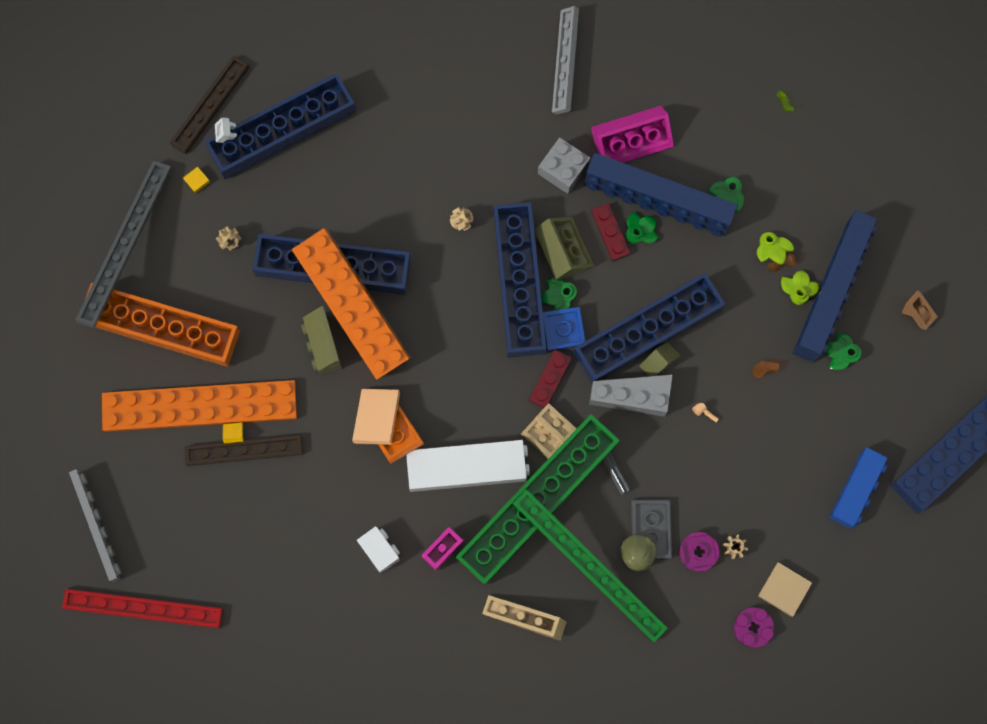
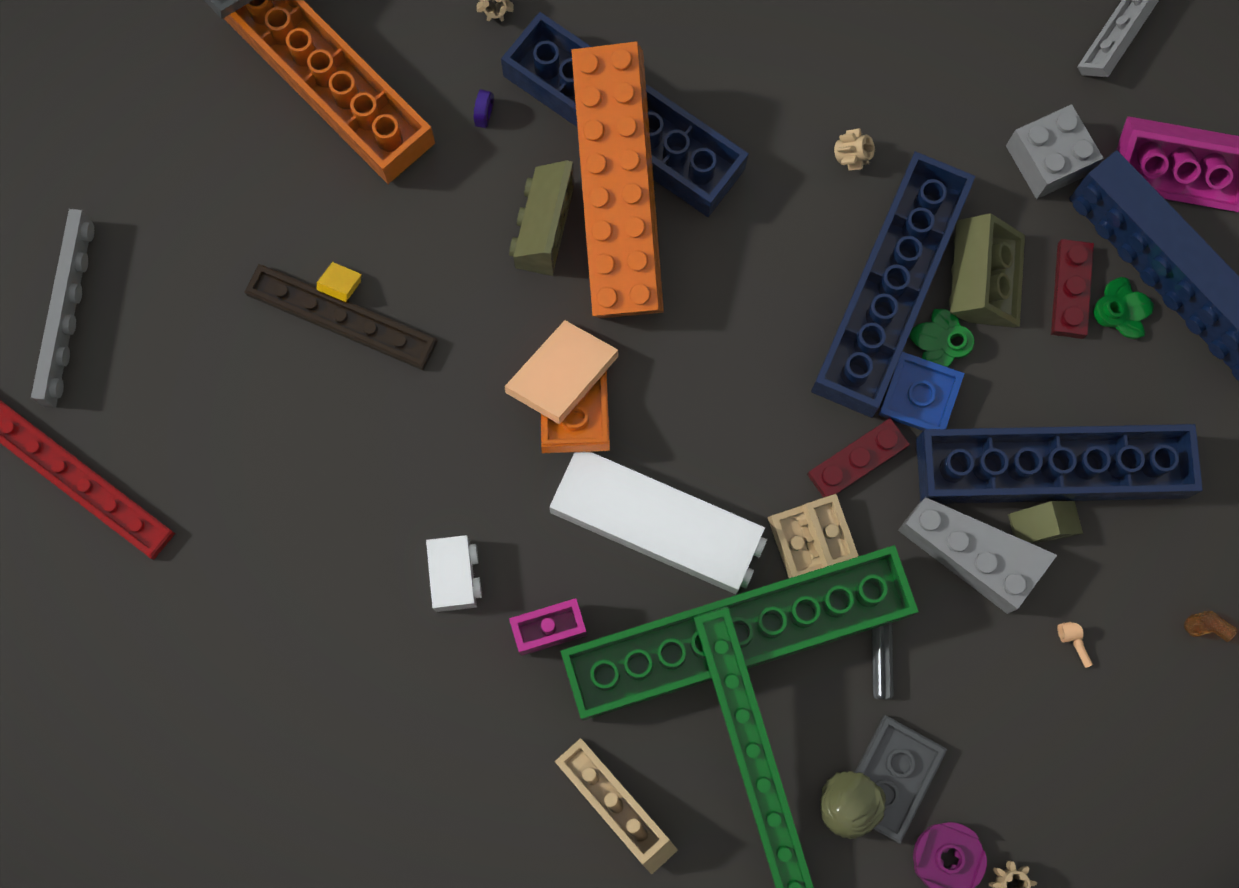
camera: 30 degrees right, 0 degrees up
(199, 406) = (316, 218): orange plate -> none
(255, 299) = (483, 108): none -> dark purple tile

